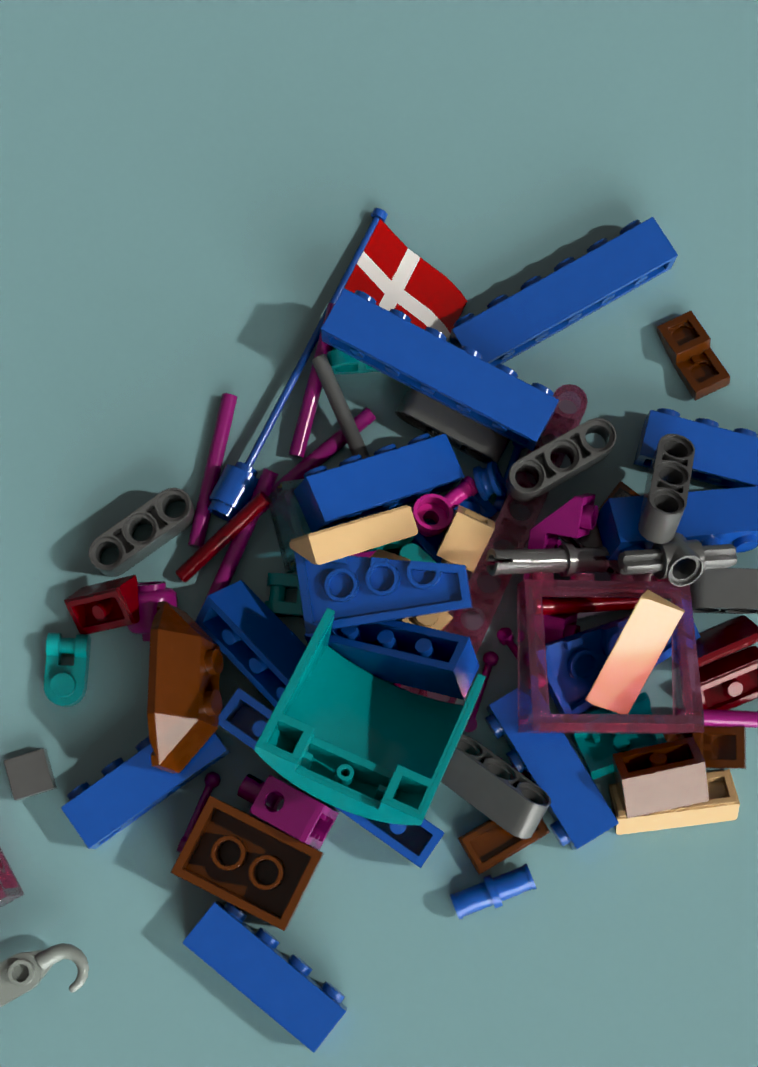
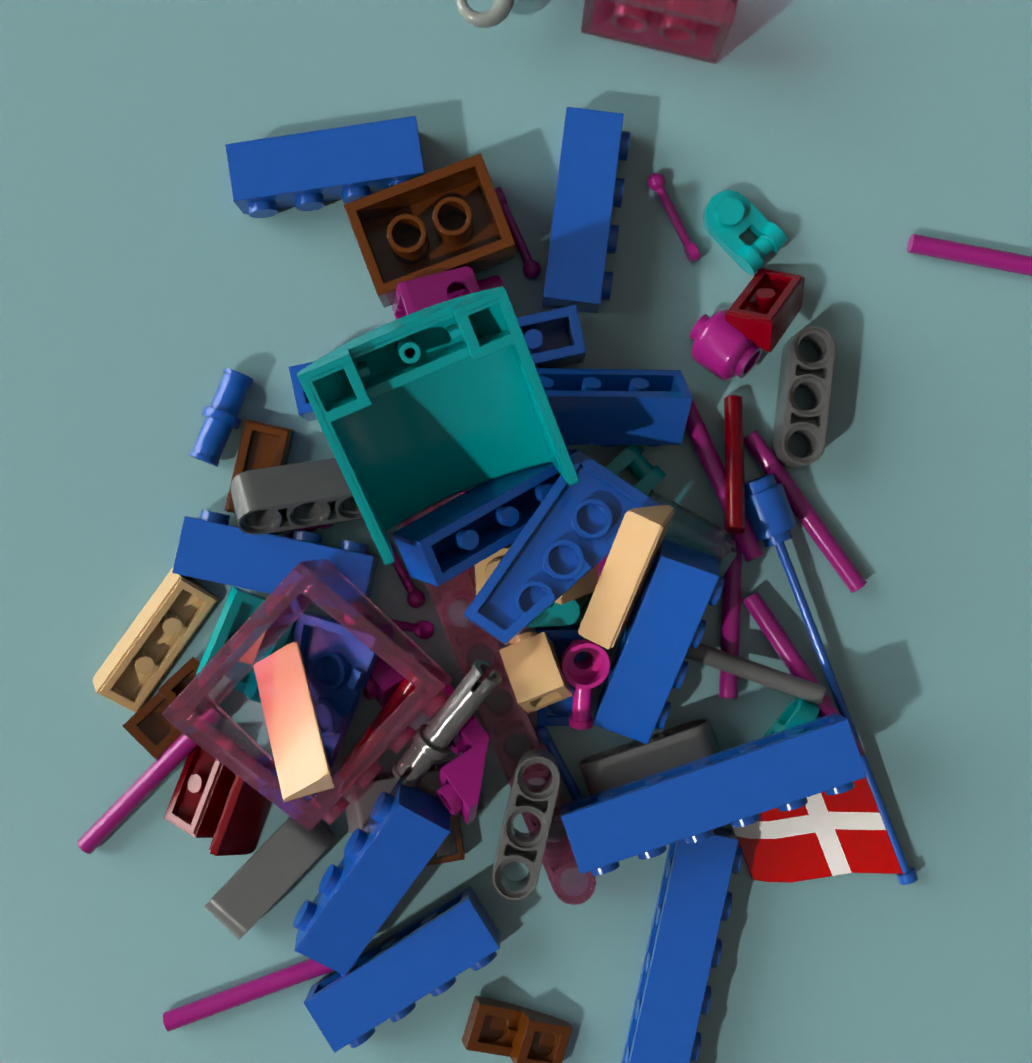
camera: 130 degrees right, 10 degrees up
(30, 774) = (677, 120): dark grey tile -> none
(83, 750) = (657, 183): none -> magenta hinge
(181, 688) = (634, 300): reddish brown wedge -> none
(489, 480) = (569, 742): blue bush -> none
(660, 777) = (174, 643): brick -> none
(666, 488) = (408, 892): dark grey beam -> none
(678, 560) = (338, 840): dark grey axle -> none

